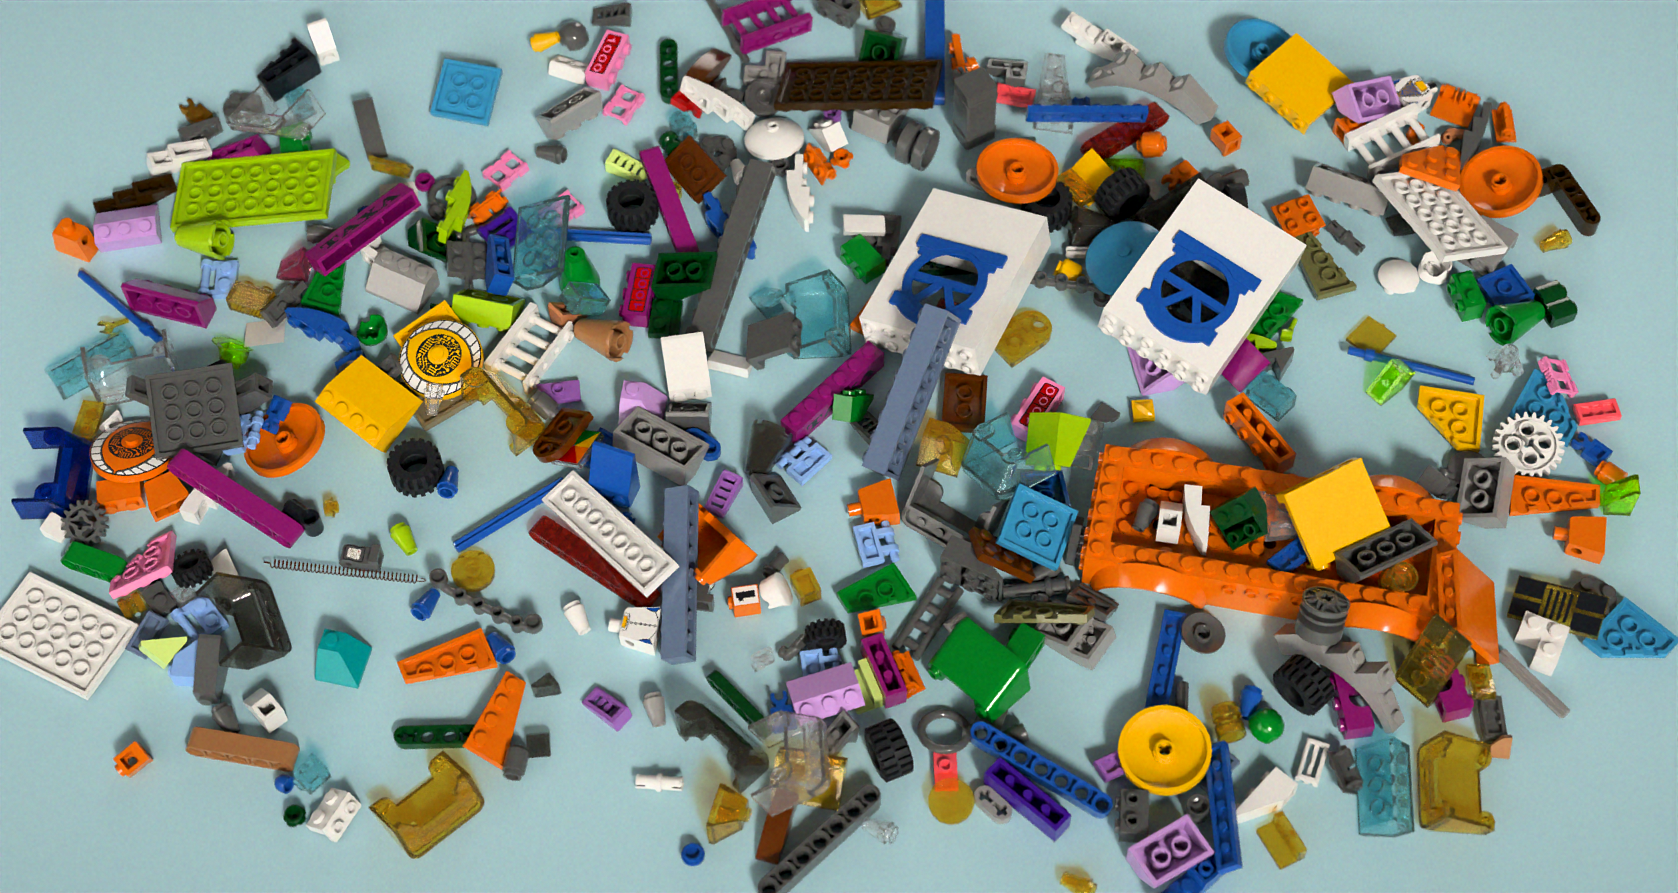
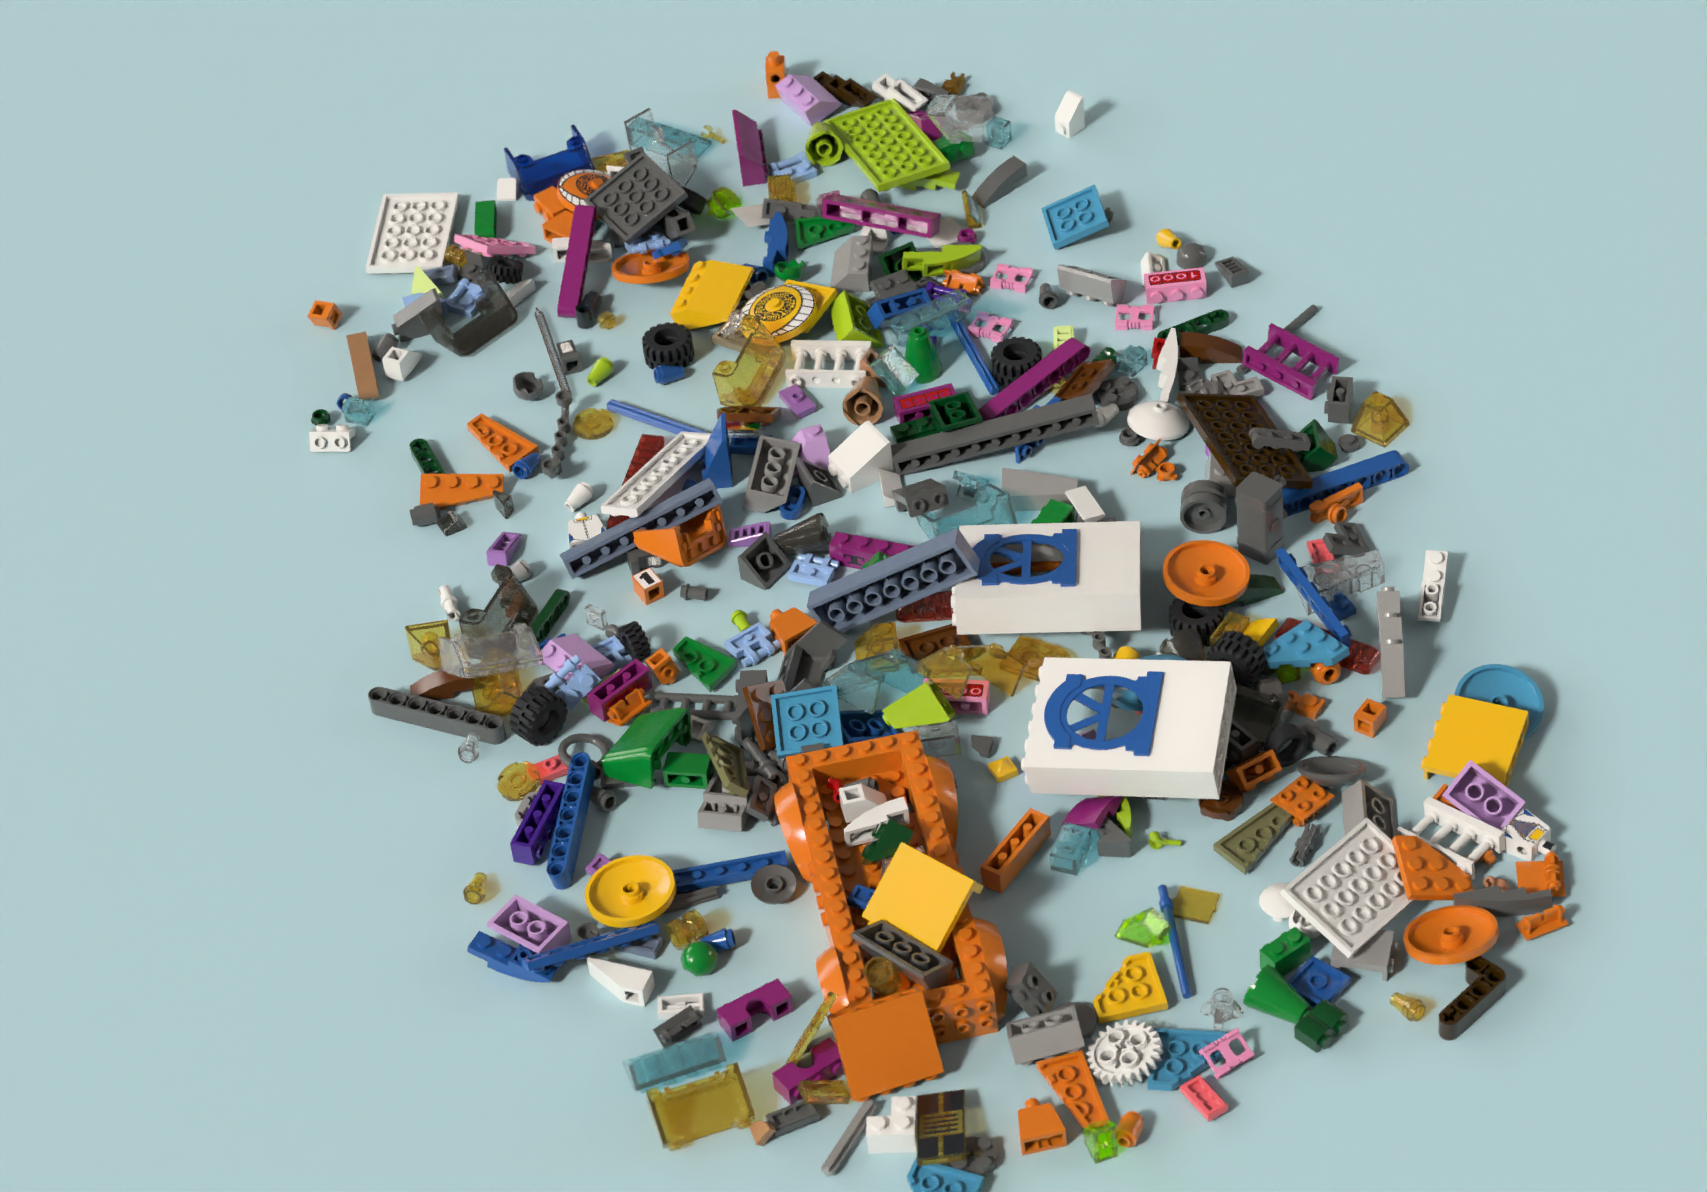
camera: 70 degrees right, 15 degrees down
(82, 533) = (515, 199): dark grey gear -> none
(144, 327) = (720, 151): blue bar -> none
(289, 71) = (1027, 112): black wedge -> none
(341, 659) = (470, 383): teal slope -> none
(386, 607) = (527, 386): none -> dark grey hair
(424, 606) = (544, 408): blue cone -> none
(432, 809) = (344, 485): clear yellow windscreen -> none
(543, 405) = (773, 392): dark grey brick -> none
(693, 854) = (393, 647): blue plate -> none
(776, 591) = (666, 600): white hair -> none
(799, 193) = (1104, 455): white slope -> none
(805, 586) = (682, 616): clear yellow brick -> none
(810, 253) = (1034, 490): none -> light grey slope
(828, 134) = (1184, 450): white slope -> none
(841, 541) = (740, 619): none -> lime pin
(868, 702) = (577, 685): none -> light blue plate
(877, 60) = (1279, 439): none -> dark grey plate
(1030, 386) = (955, 664): none -> clear yellow windscreen
(1133, 815) = (562, 898): dark grey brick -> none
(1135, 142) = (1305, 646): none -> dark azure plate
(1136, 535) = (835, 784): none -> red arm
(1276, 315) = (1173, 820): green wing -> none
(1278, 183) = (1331, 770): none -> dark grey dish
(1282, 841) = (588, 1009): clear yellow panel -> none
(1303, 684) = (745, 960): black tyre -> none
(1322, 616) = (805, 930): dark grey wheel -> none
(1347, 660) = (773, 989): light grey arch -> none
(1593, 451) = (1154, 1107): blue plate -> none

